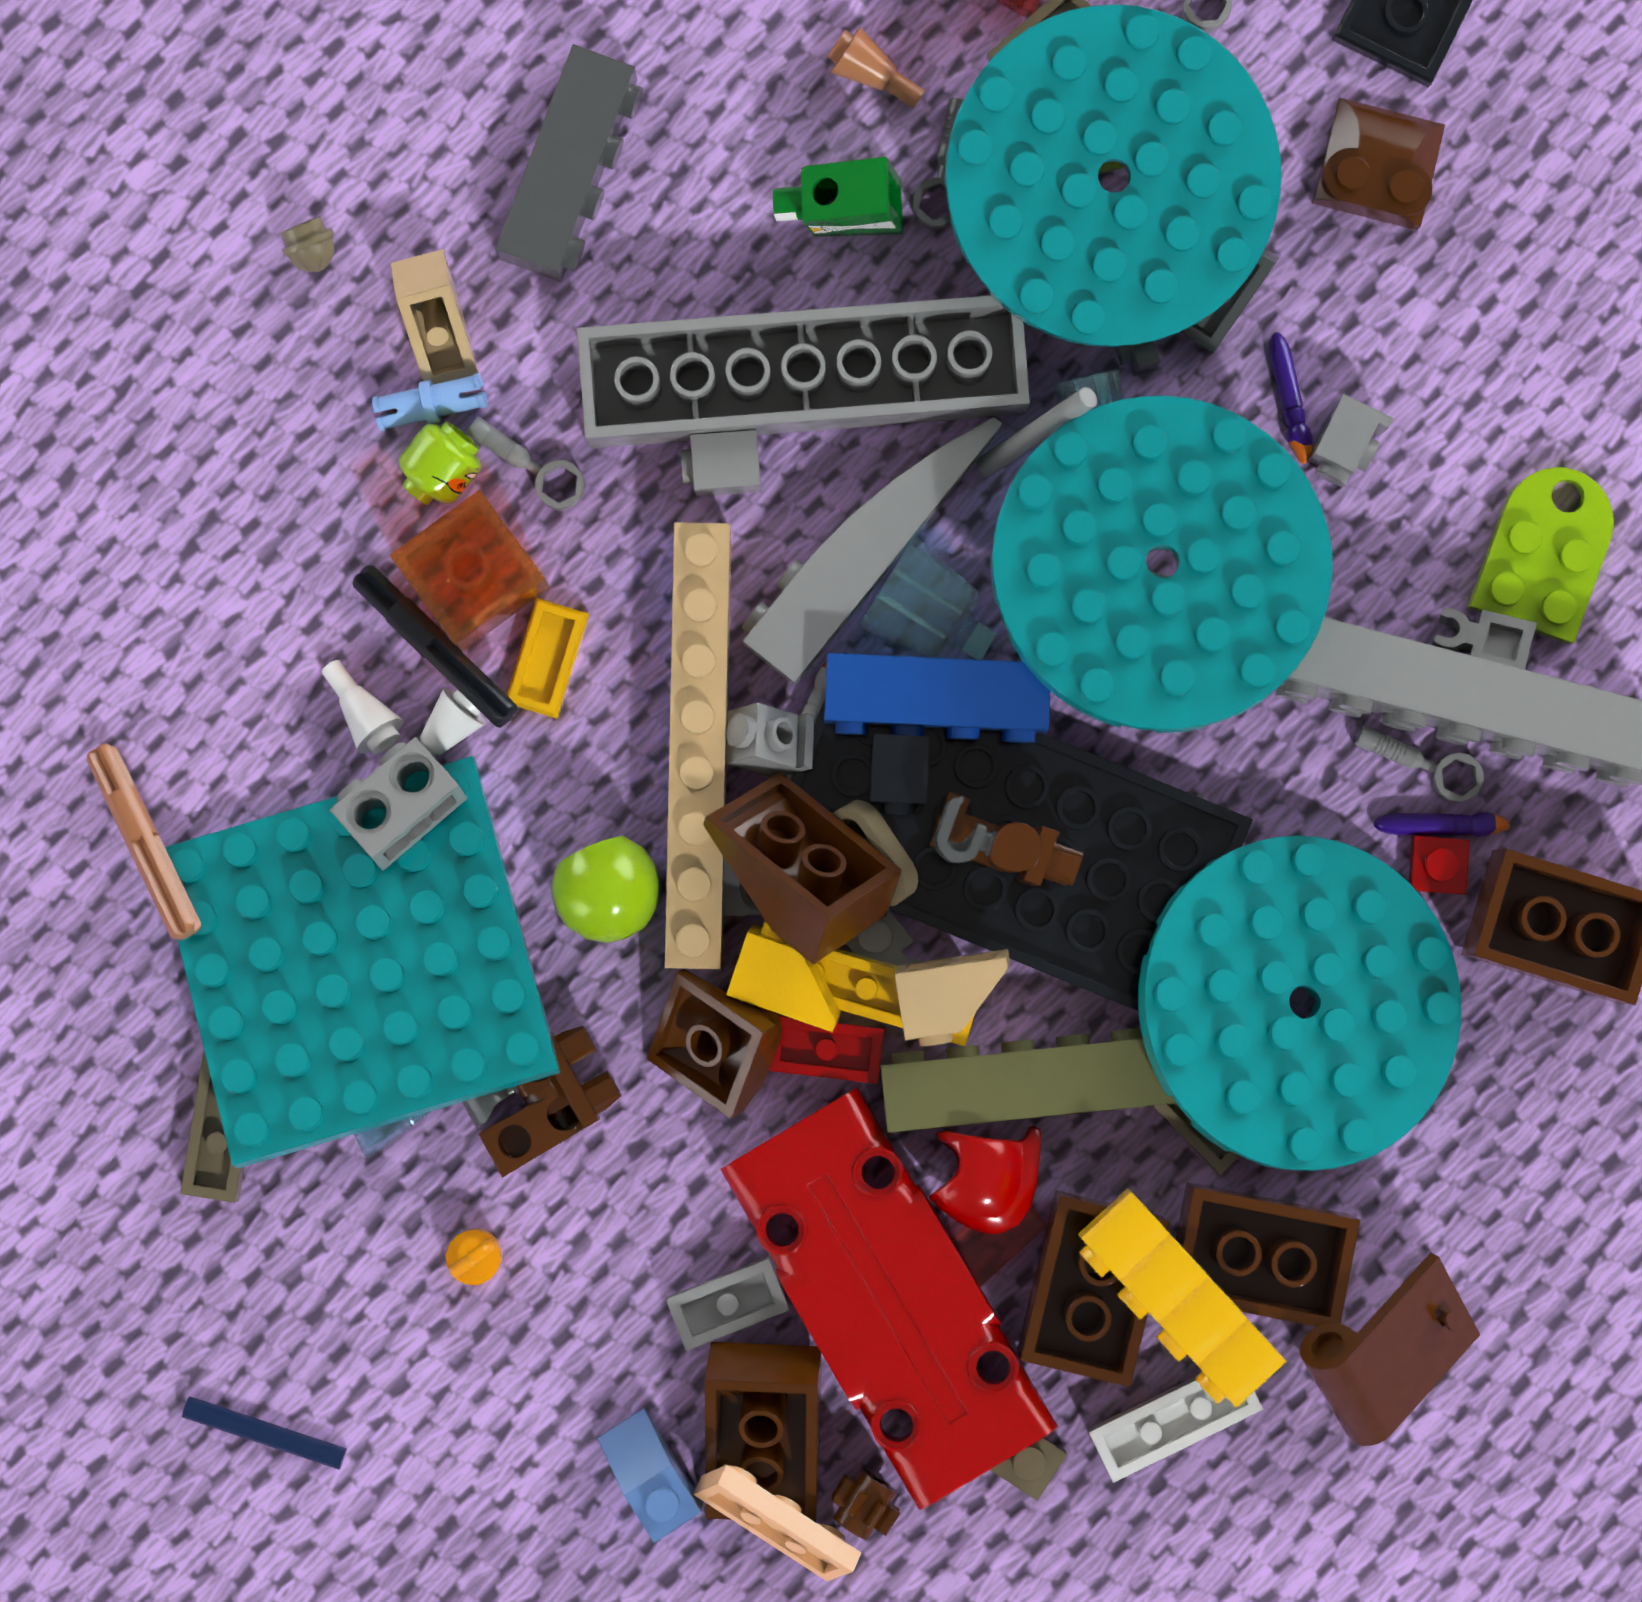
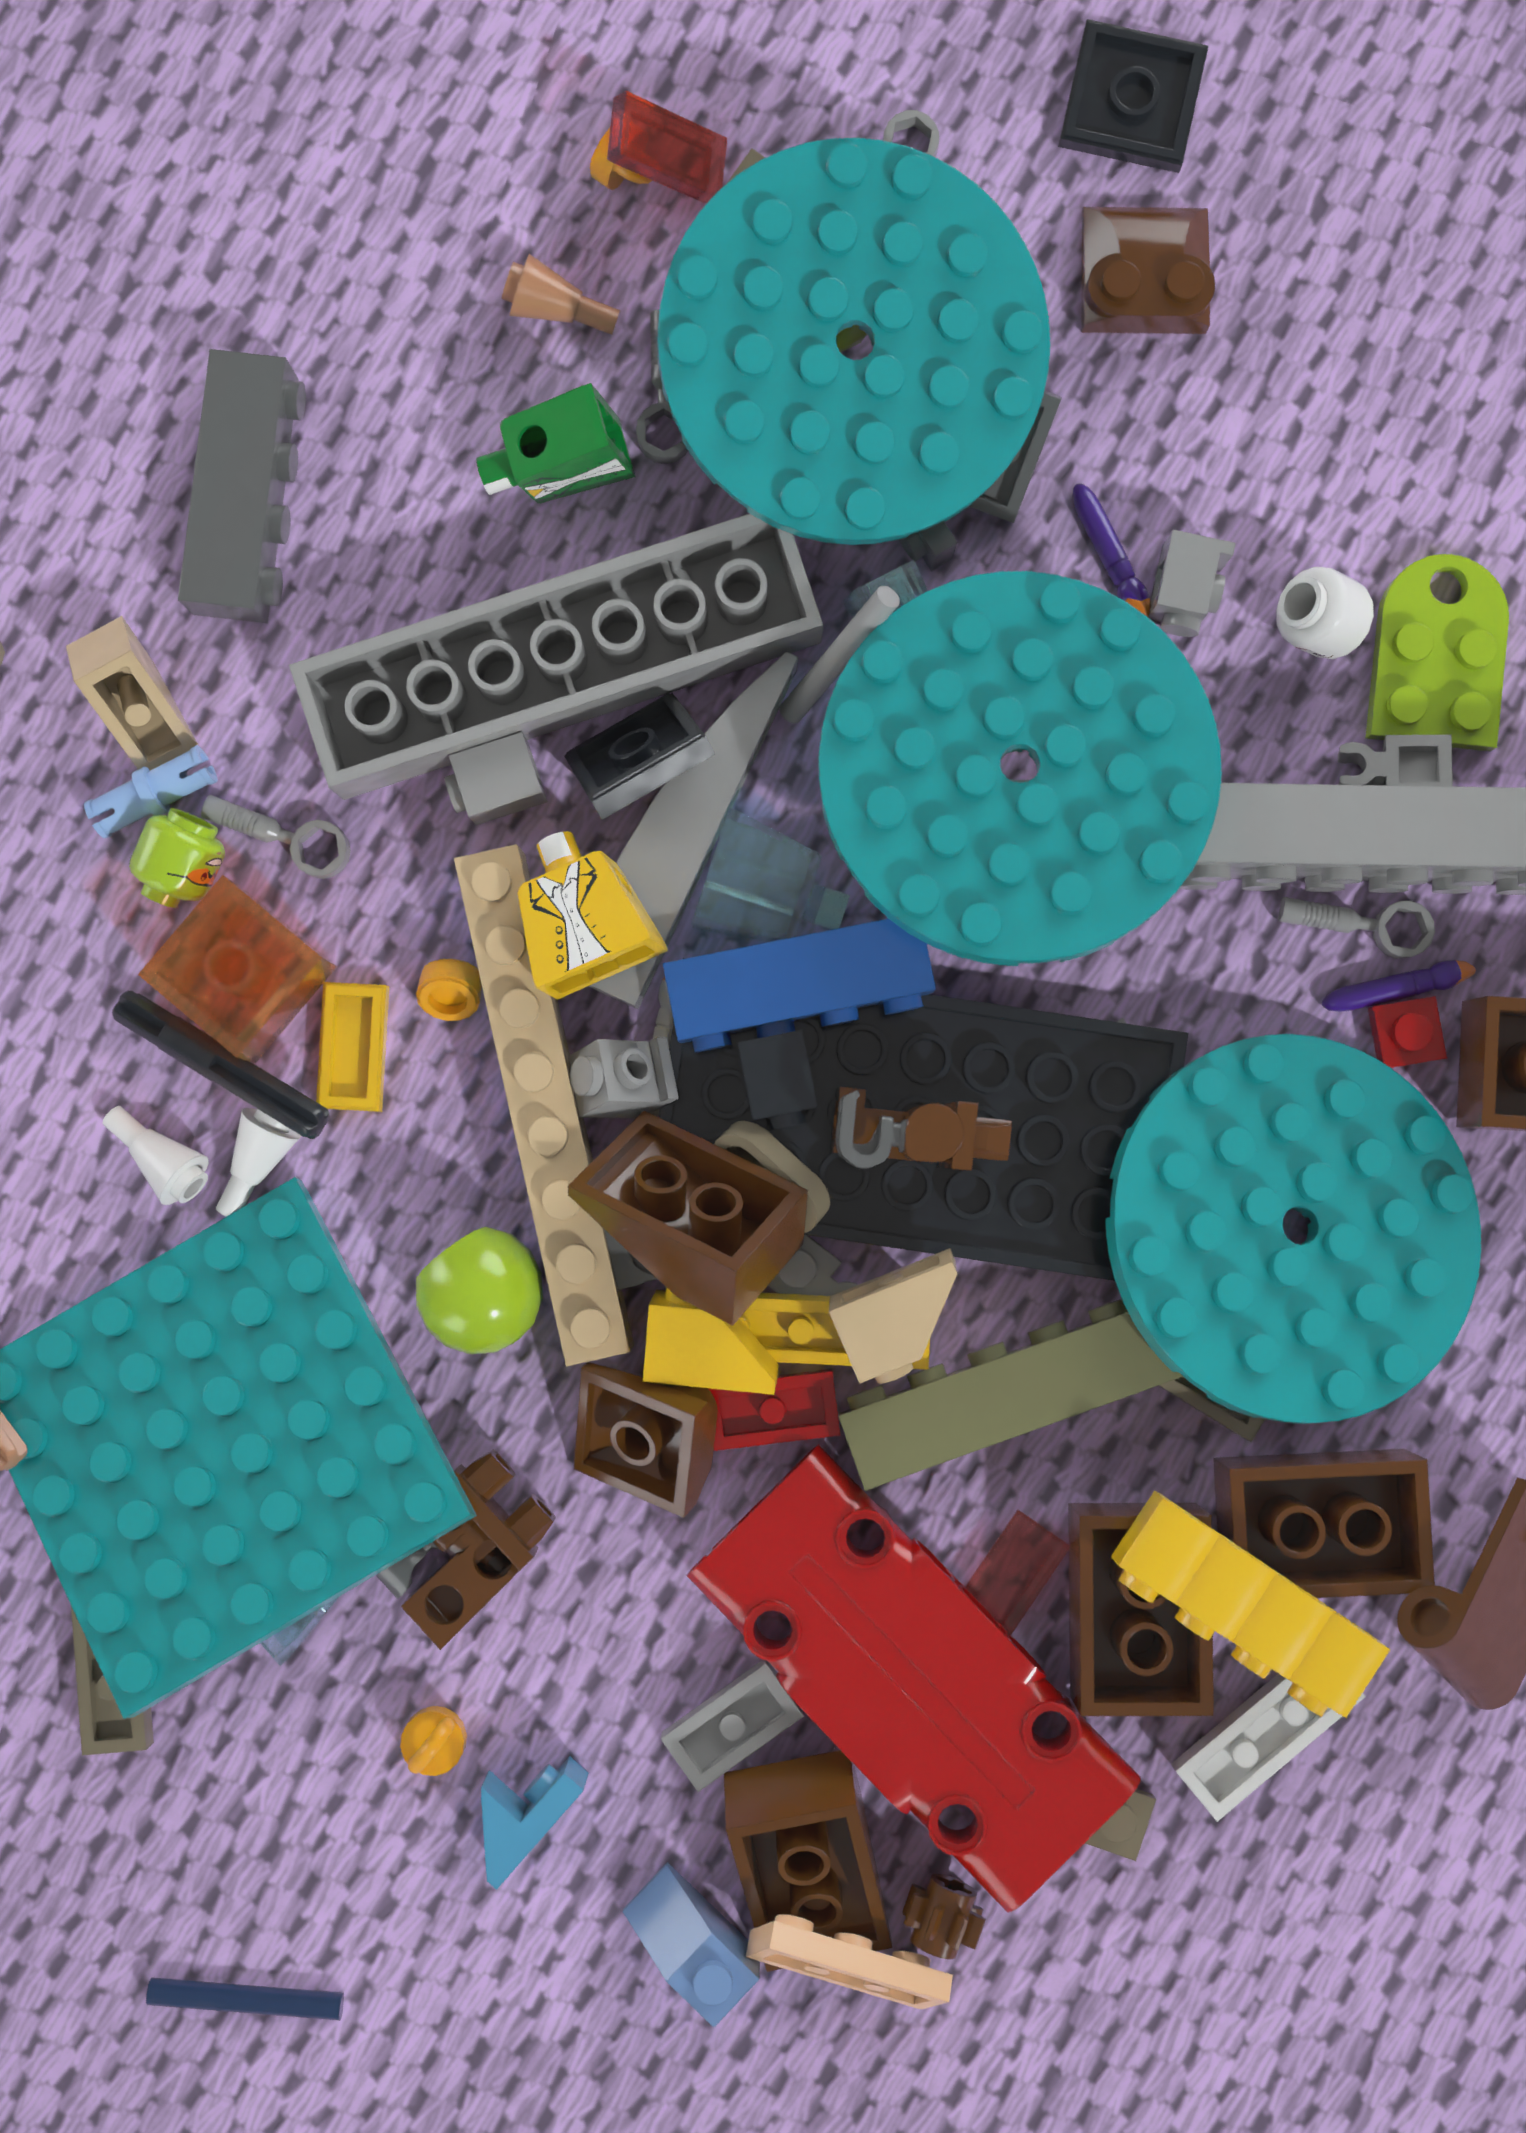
camera: 10 degrees left, 0 degrees up
(408, 813) = (229, 1265): light grey brick -> none
(526, 1345) = (516, 1827): none -> dark azure slope
(641, 630) = (449, 989): none -> light orange tile
(770, 600) = (582, 919): none -> yellow torso
(848, 472) = (638, 754): none -> black tile
(992, 1180) = (996, 1515): red piece -> none
(1455, 494) = (1324, 613): none -> white head

